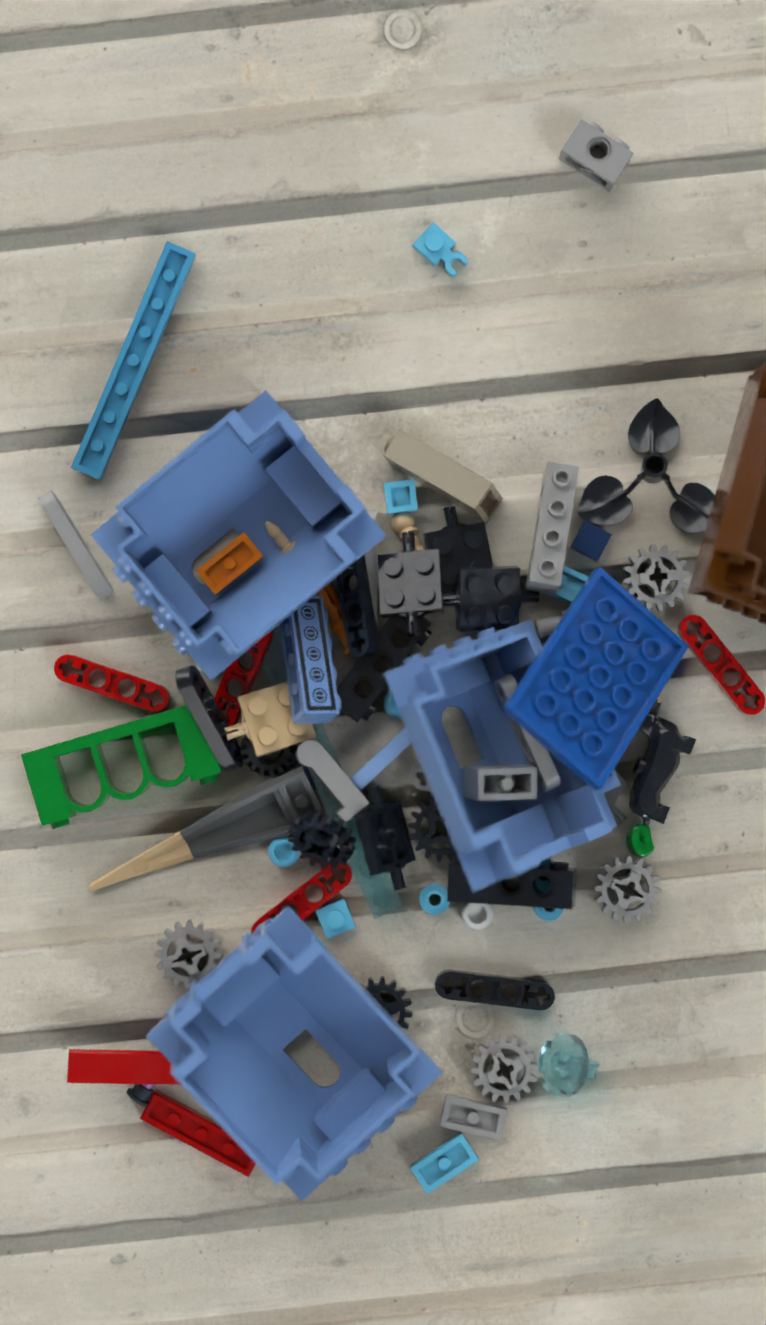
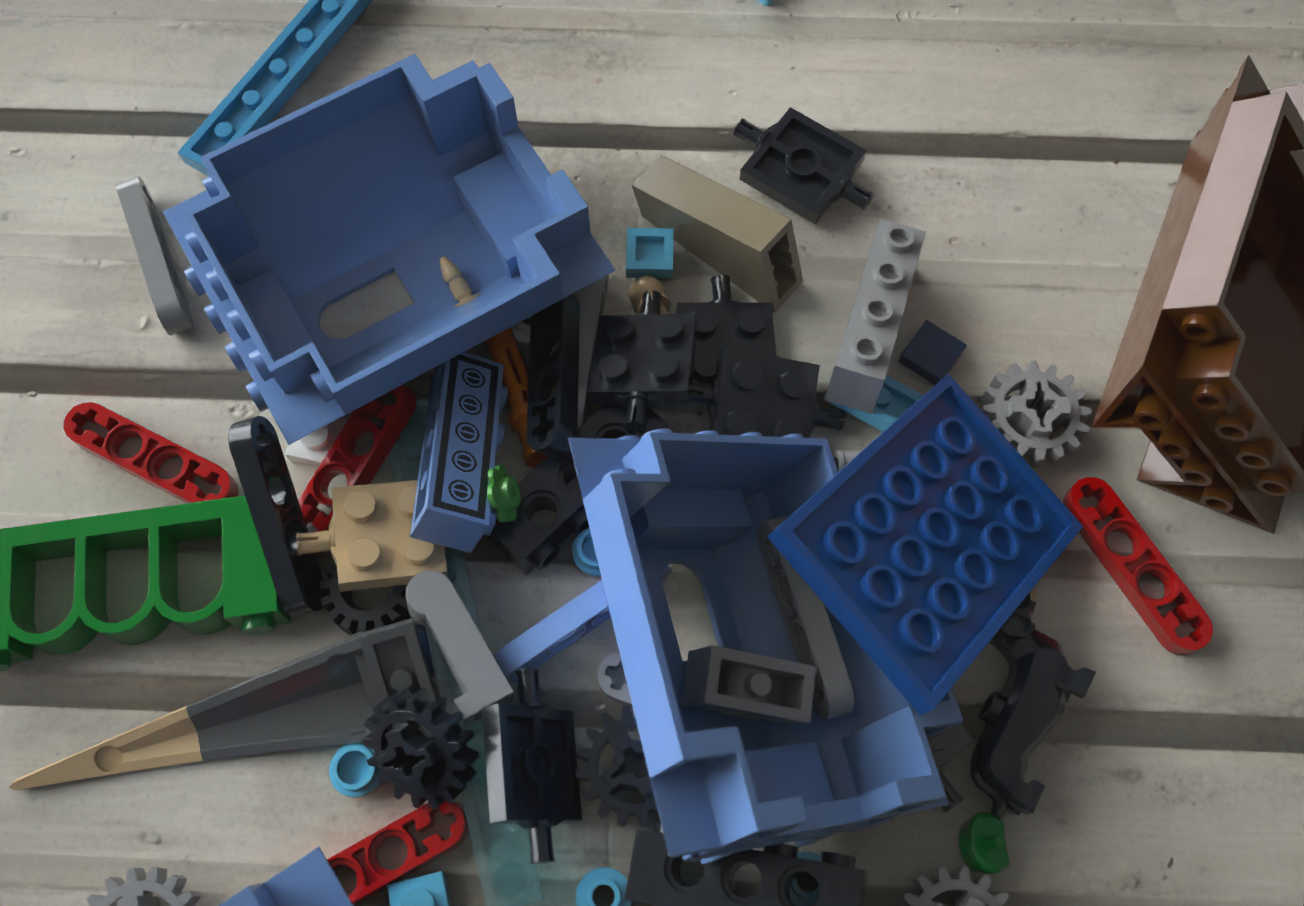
camera: 10 degrees right, 20 degrees down
(230, 563) = (374, 306): orange plate -> none
(342, 687) = (503, 493): none -> bright green plant
(493, 414) = (802, 165): none -> black plate
(658, 433) = (1043, 224): black plant -> none

